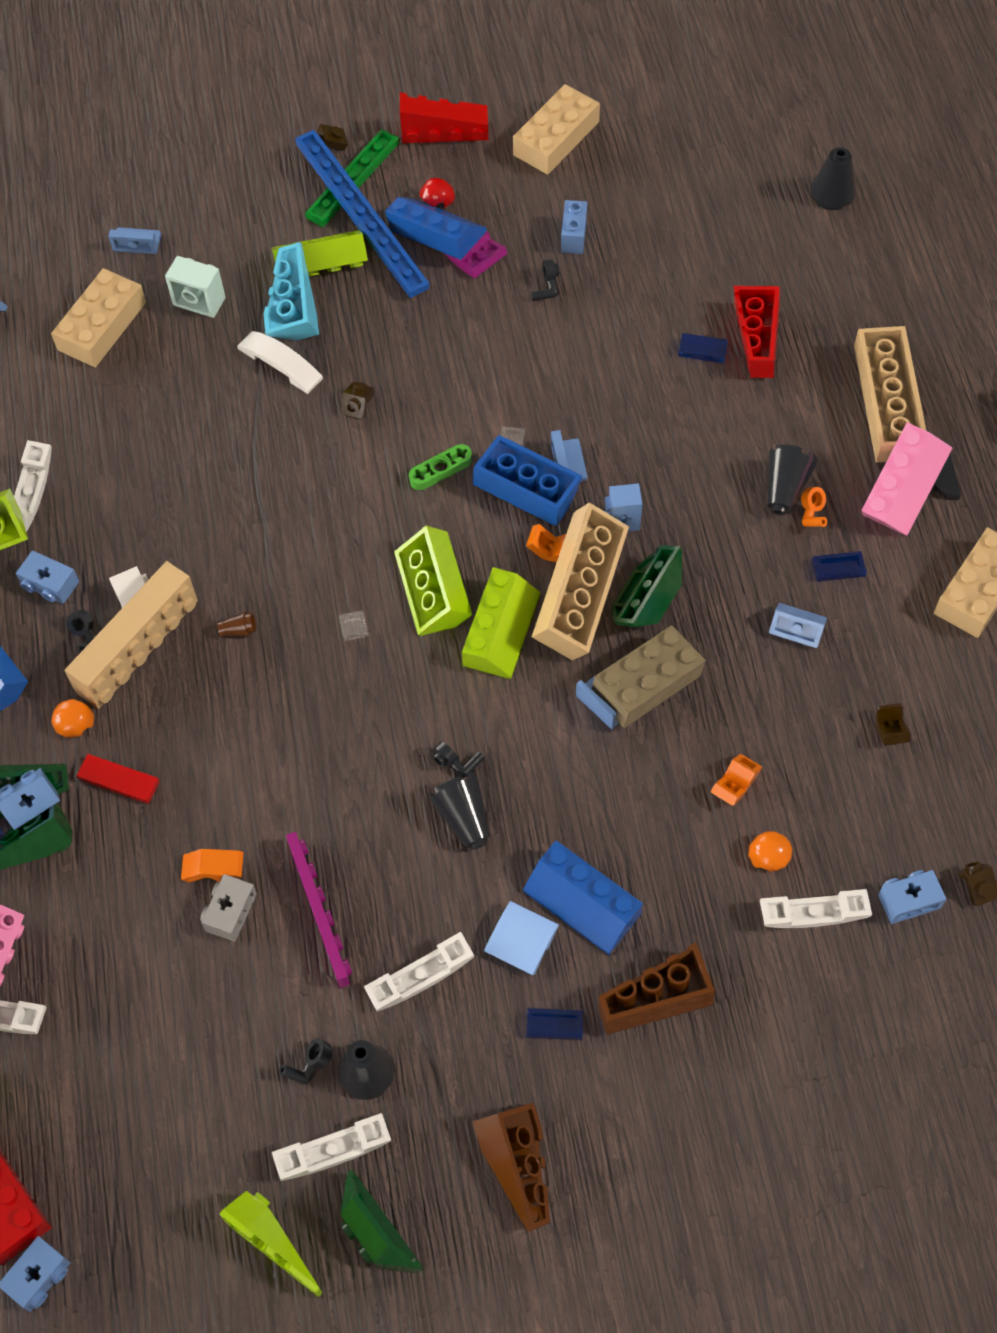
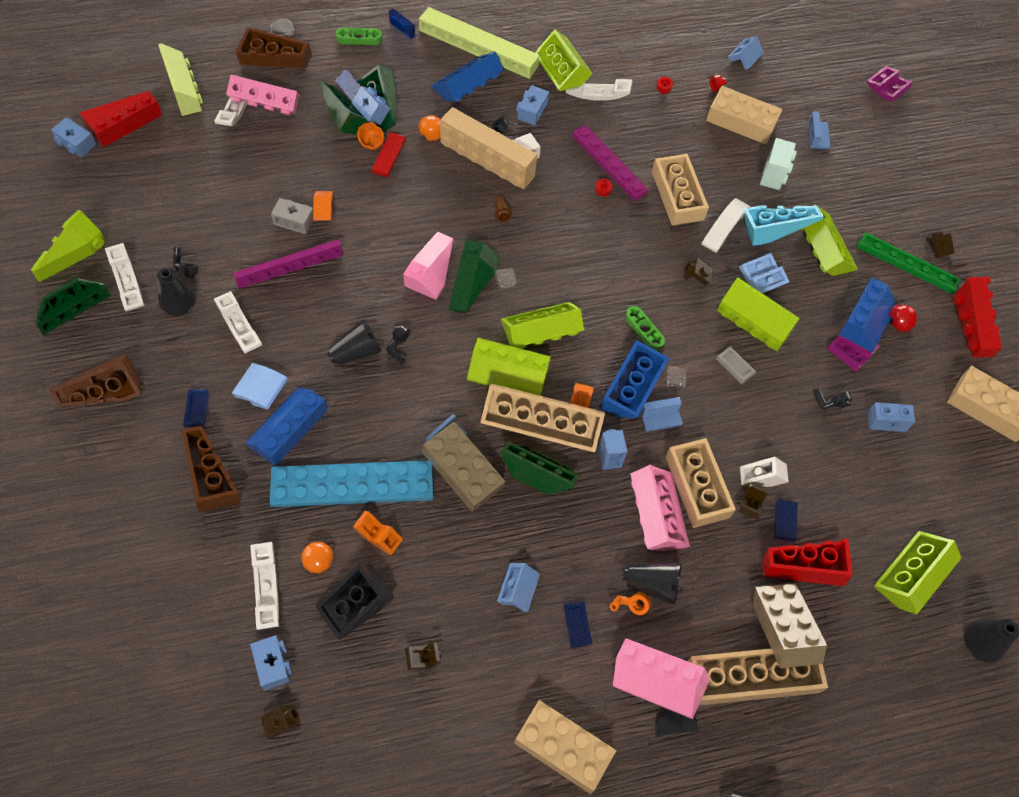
camera: 80 degrees right, 0 degrees up
(31, 406) = (664, 85): none -> red tile
(35, 343) = (716, 83): none -> red tile
(58, 150) = (889, 84): none -> magenta slope
(87, 799) = (370, 136): none -> orange hair
(160, 488) = (610, 163): none -> magenta plate
(206, 499) = (603, 187): none -> red tile
(225, 403) = (679, 189): none -> tan brick
(331, 720) = (430, 266): none -> bright pink wedge
(344, 665) = (474, 272): none -> dark green wedge
(362, 214) = (869, 266): blue plate -> none
(363, 328) = (764, 273): none -> light blue slope
(432, 338) = (757, 314): none -> lime slope
(496, 374) = (735, 365): none -> light grey tile
(647, 360) = (764, 473): none -> white slope
(664, 423) = (700, 483): none -> tan brick
(666, 817) = (351, 483): none -> dark azure plate
(684, 377) = (753, 501): none -> dark brown bracket
(696, 471) = (659, 509): none -> bright pink slope
(761, 233) = (918, 571): none -> lime slope
(828, 803) = (354, 600): none -> black slope
(840, 351) = (789, 626): none -> dark tan brick

